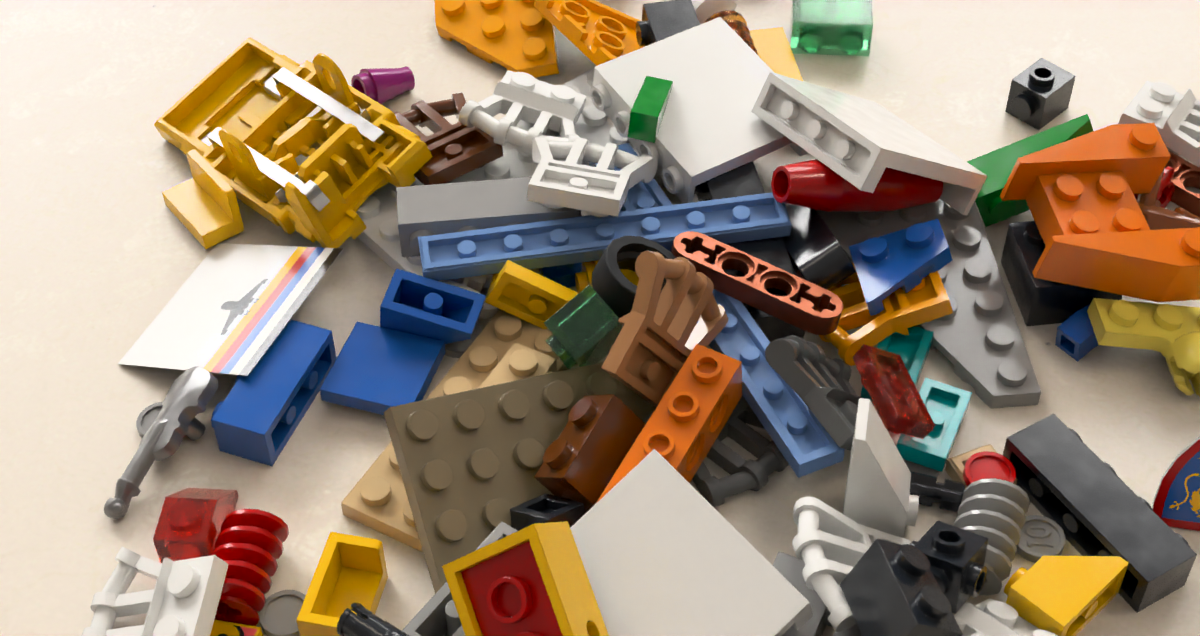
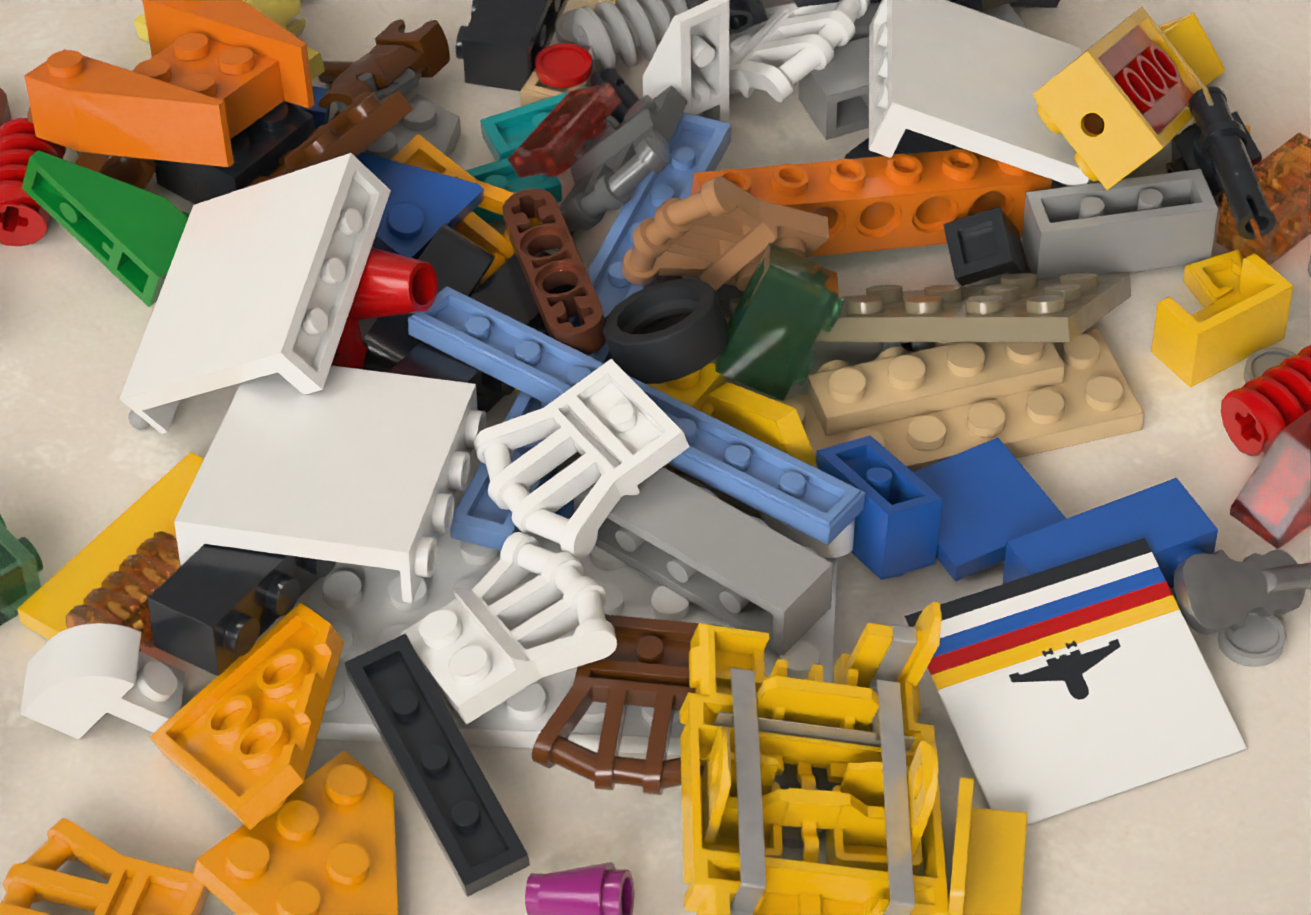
camera: 135 degrees left, 0 degrees up
(484, 72) = (437, 765): none -> black plate
(589, 449) = (891, 252): reddish brown brick -> none
(649, 109) = (427, 451): green piece -> none
(976, 256) = (346, 133): none -> reddish brown plate
(1061, 363) = (390, 66): none -> reddish brown piece

